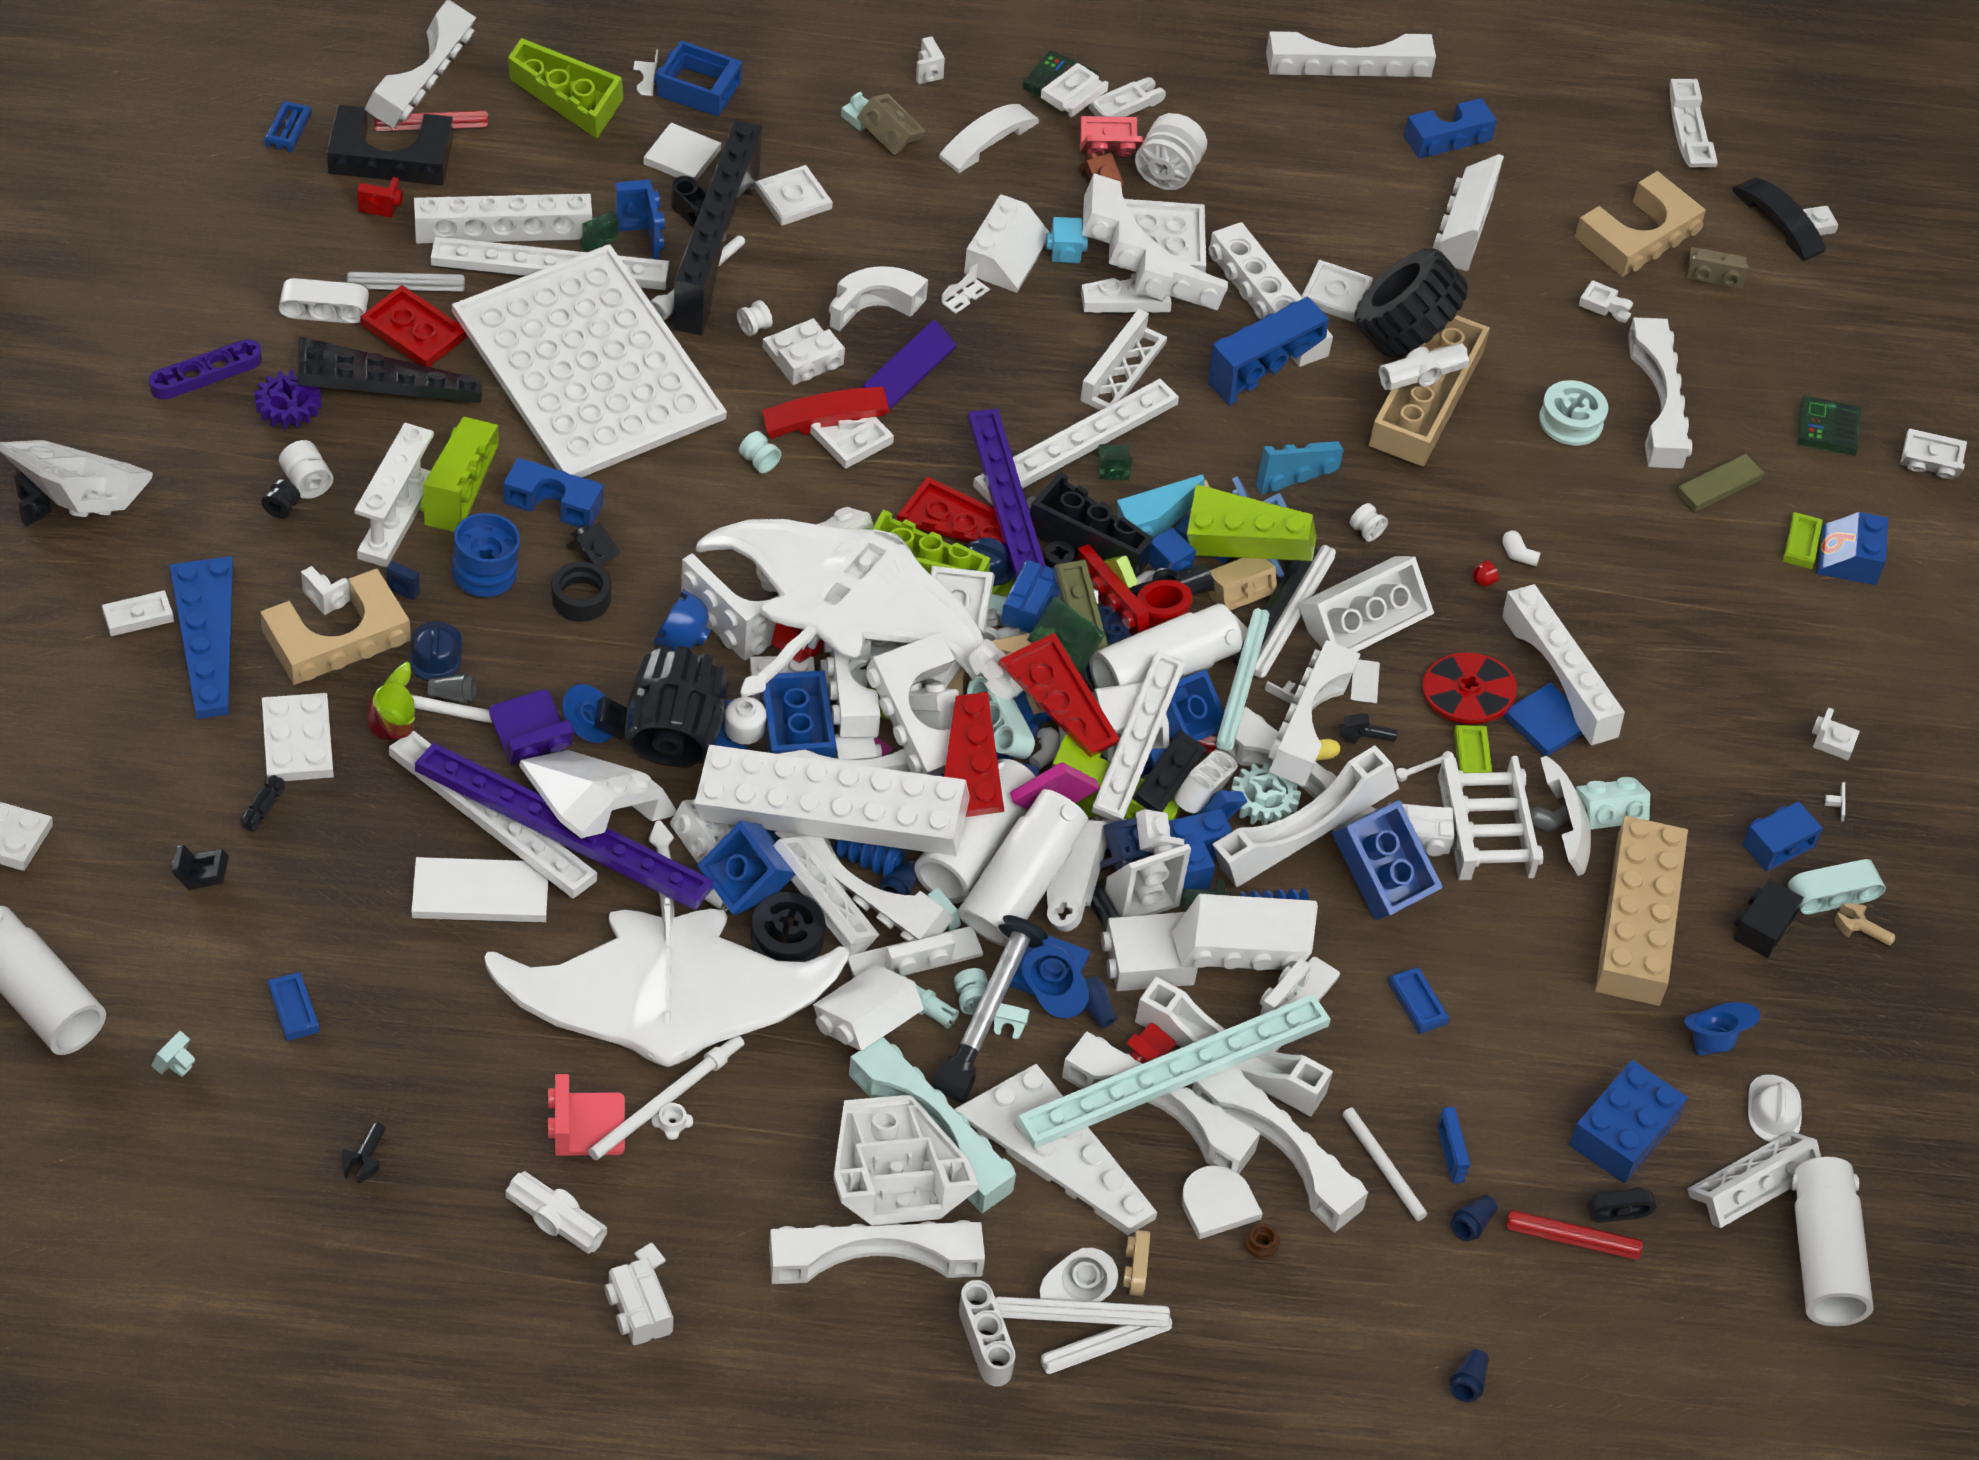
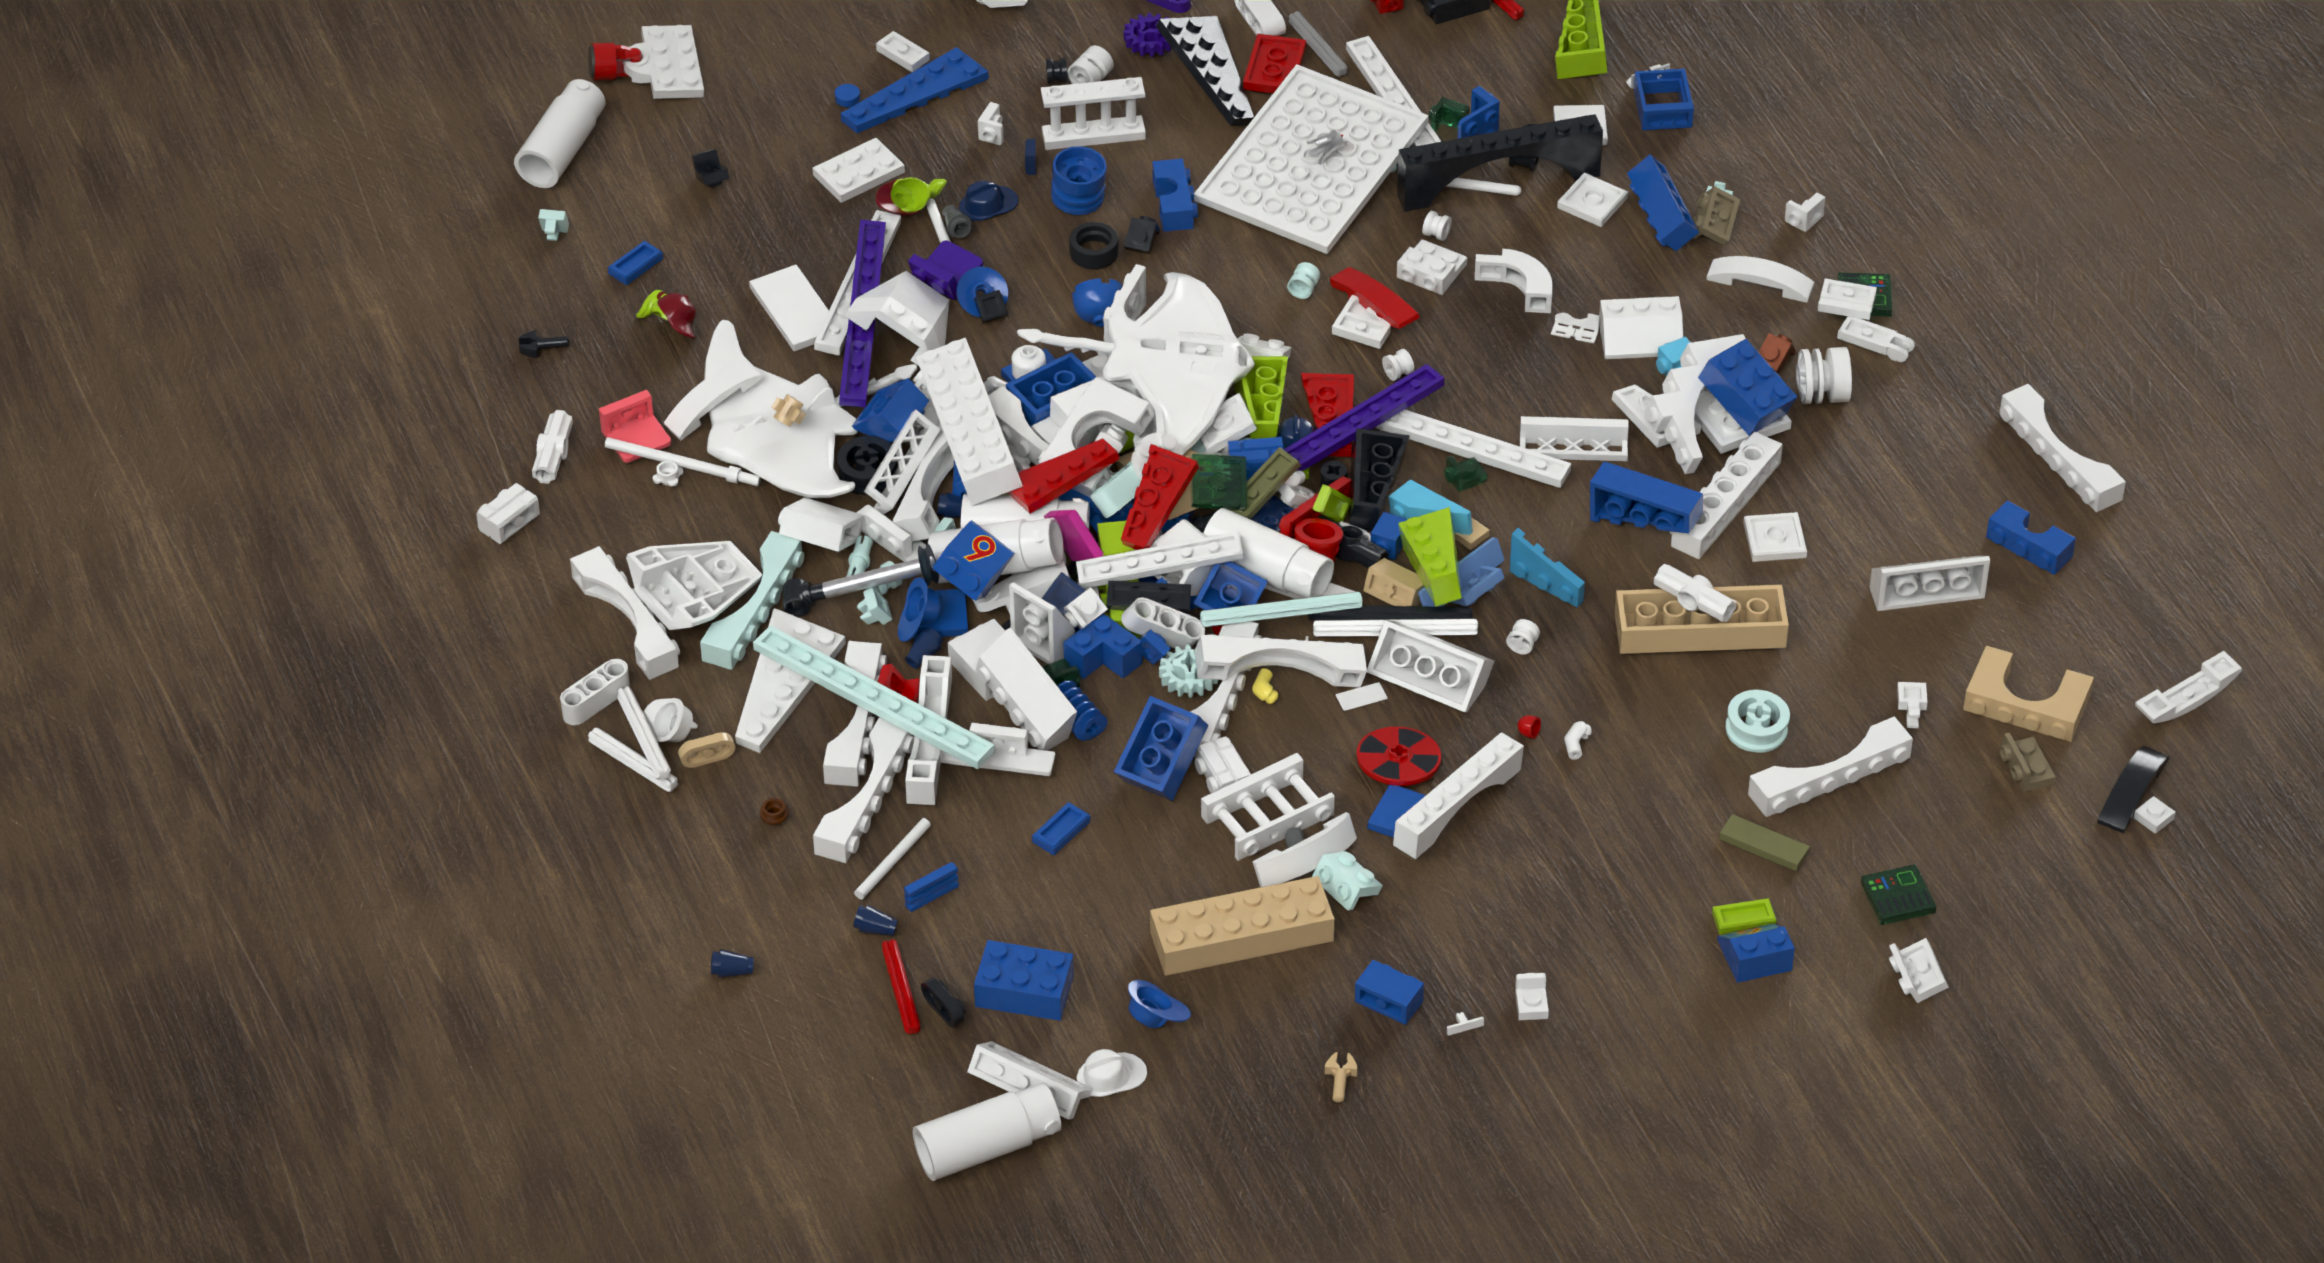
camera: 70 degrees right, 5 degrees down
(165, 693) = (847, 95): none -> blue tile
(262, 803) = (789, 177): black axle -> none
(310, 654) = (980, 163): tan arch -> none
(414, 997) = (671, 307): none -> dark red hair
(459, 473) = (1140, 139): lime wedge -> none
(502, 217) = (1415, 57): white brick -> none
(590, 1025) = (708, 394): none -> white slope
(597, 330) = (1327, 143): none -> flat silver piece
(651, 1253) = (553, 510): white window -> none
(676, 707) = (998, 313): black wheel -> none
(685, 956) = (788, 410): none -> tan gear
(850, 146) = (1662, 203): none -> blue brick
(913, 362) = (1464, 325): dark purple slope -> none
(933, 438) = (1398, 364): none -> white wheel
(1050, 888) = (973, 561): none -> blue slope
(1109, 135) = (1813, 334): coral bracket -> none
(1171, 203) = (1747, 387): none -> blue brick
(1218, 1201) = (793, 777): white tile -> none
(1356, 788) = (1120, 676): white arch -> none
(1359, 725) = (1296, 701): black bar -> none
(1402, 773) = (1280, 748): white hinge -> none
(1411, 302) = (1761, 560): black tyre -> none
(1472, 749) = (1336, 780): lime tile -> none
(1767, 918) = (1294, 1008): black brick -> none
(1837, 885) = (1363, 1042): light aqua beam -> none

